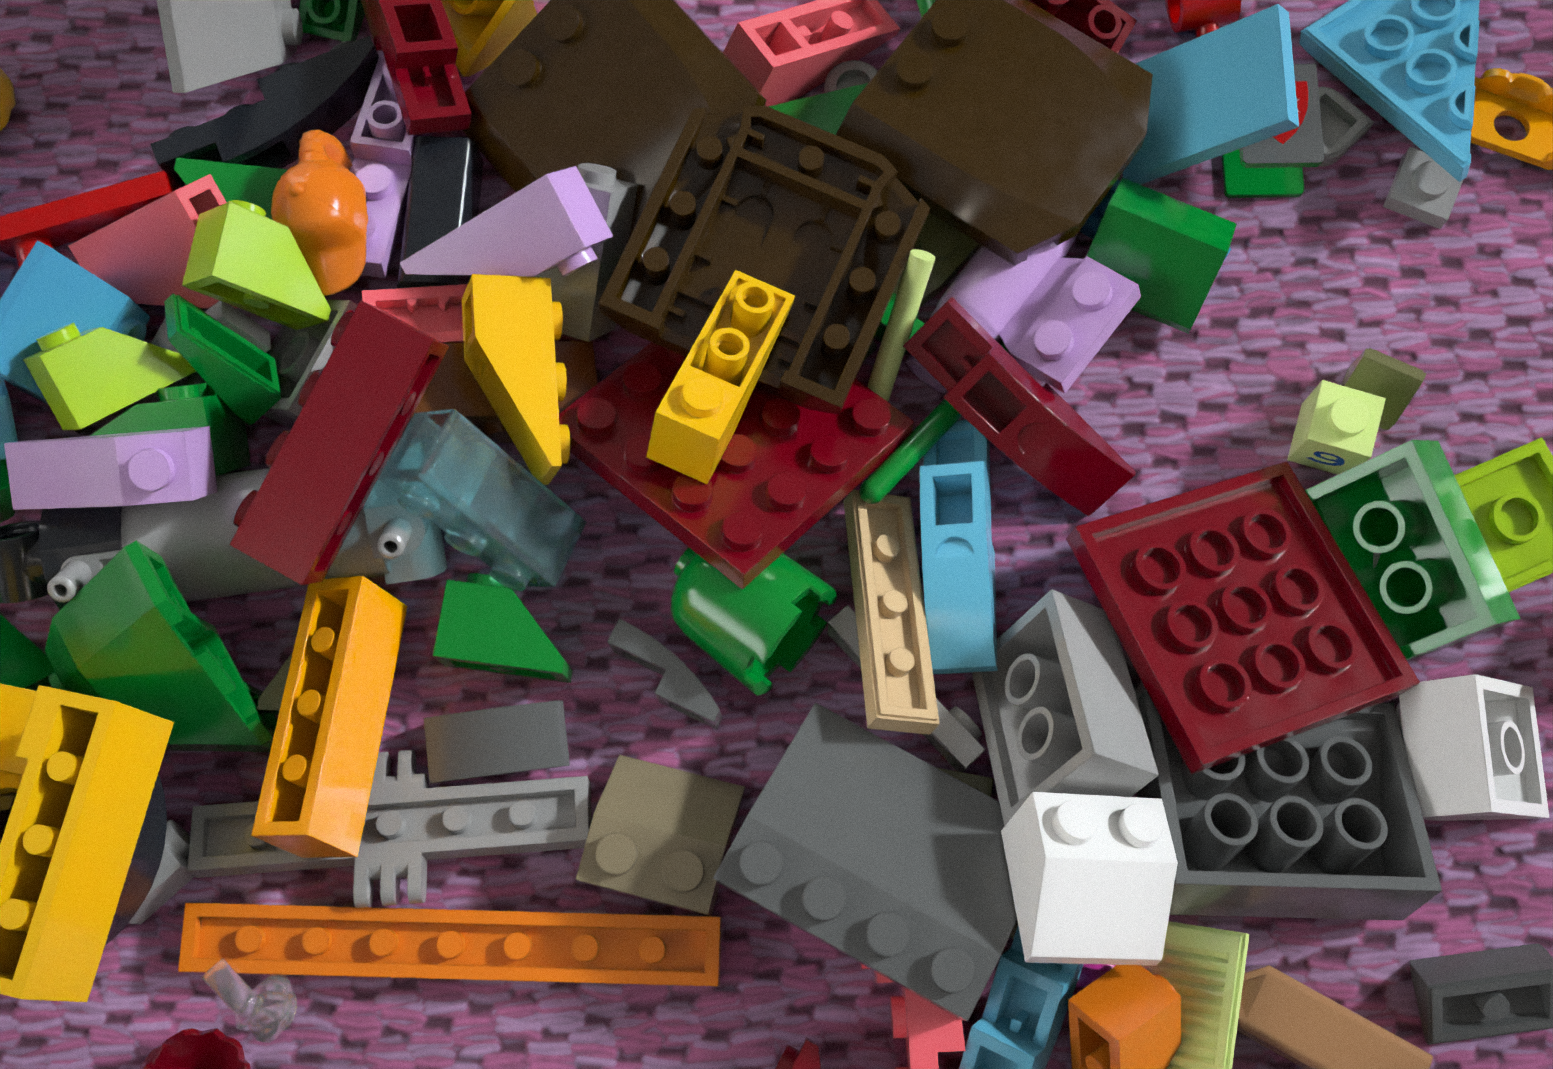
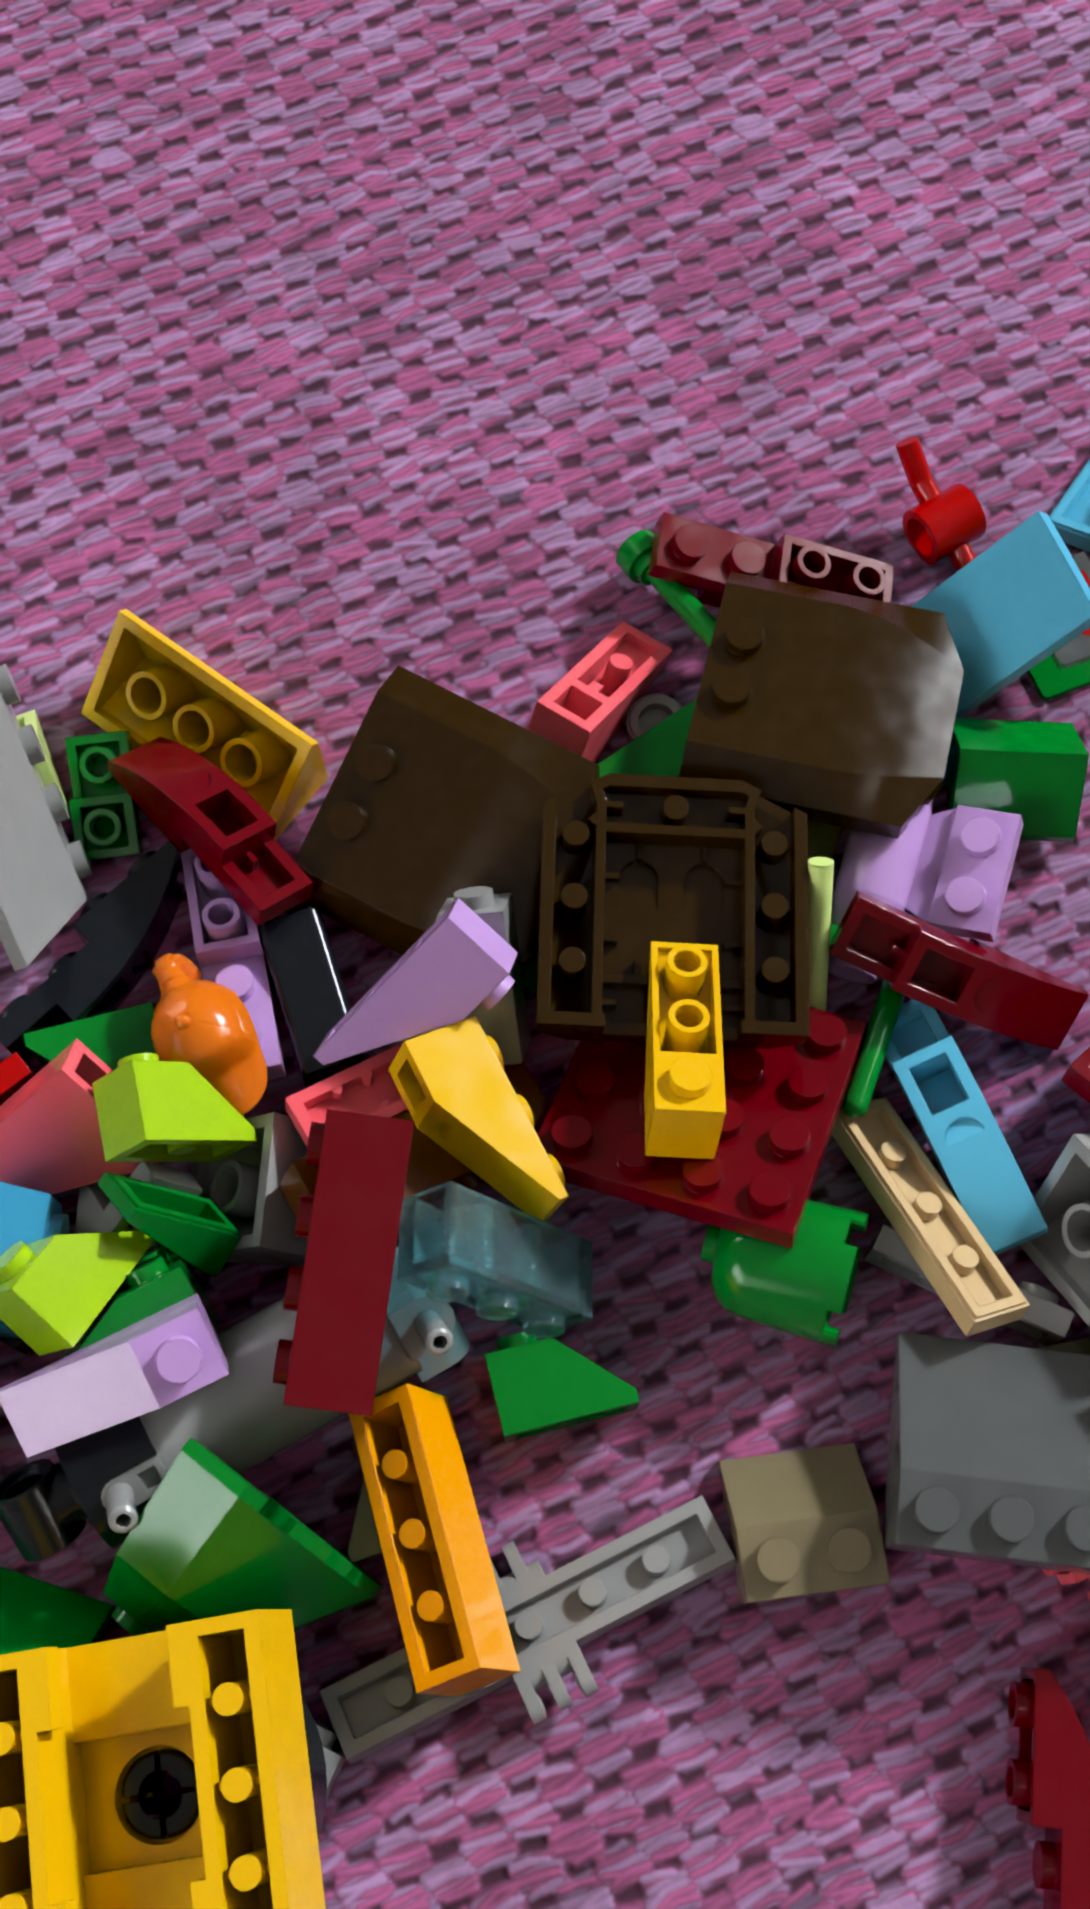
camera: 25 degrees left, 5 degrees down
(260, 1010) = (477, 1873): clear plate -> none
(452, 944) = (636, 1724): orange plate -> none
(496, 741) = (596, 1498): dark grey slope -> none
(679, 685) = (754, 1368): dark grey slope -> none

